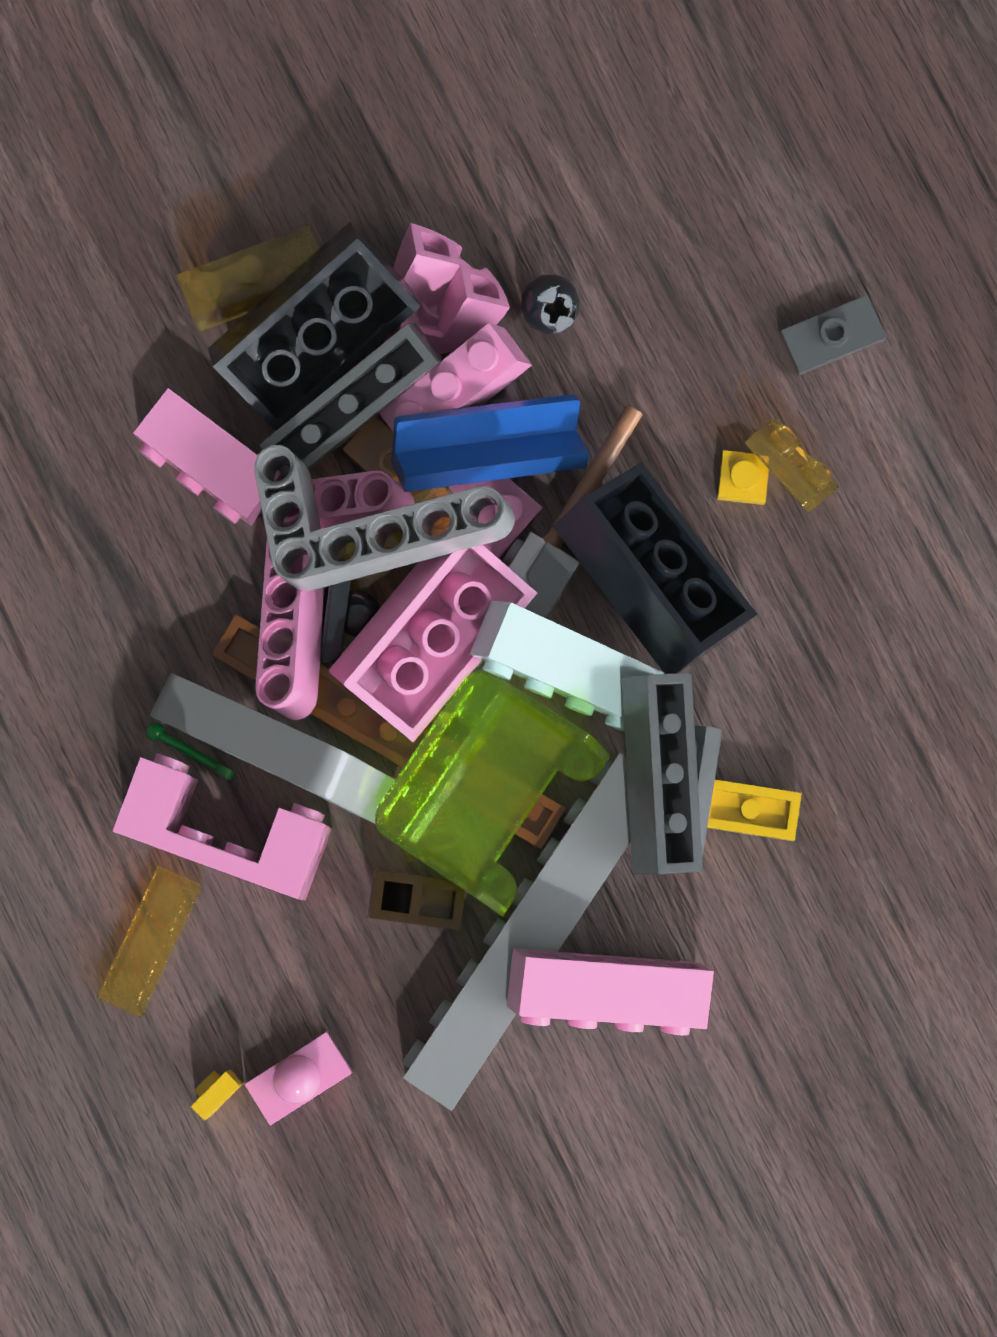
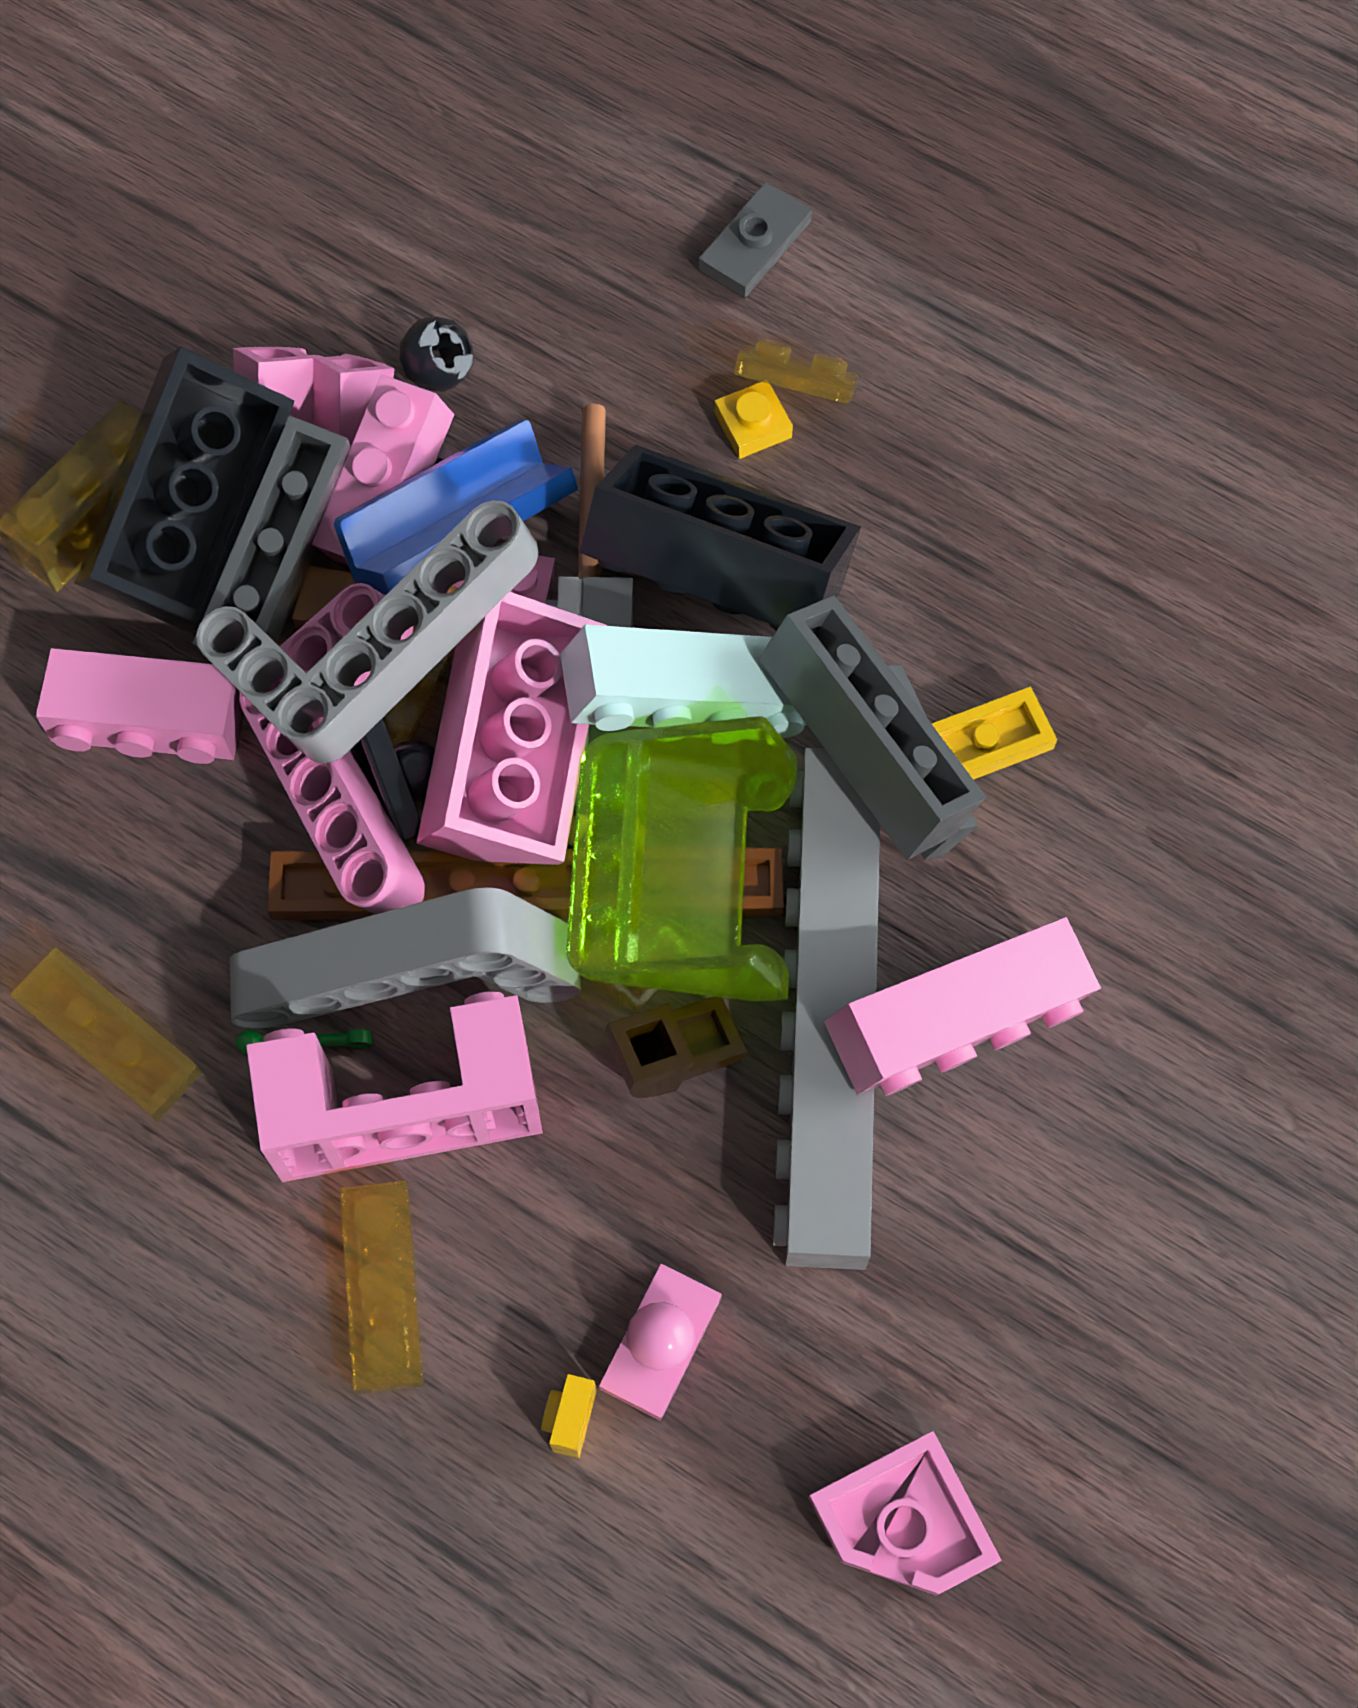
camera: 35 degrees left, 15 degrees down
(67, 675) = (106, 1034): none -> clear yellow plate
(379, 1275) = (907, 1520): none -> bright pink plate

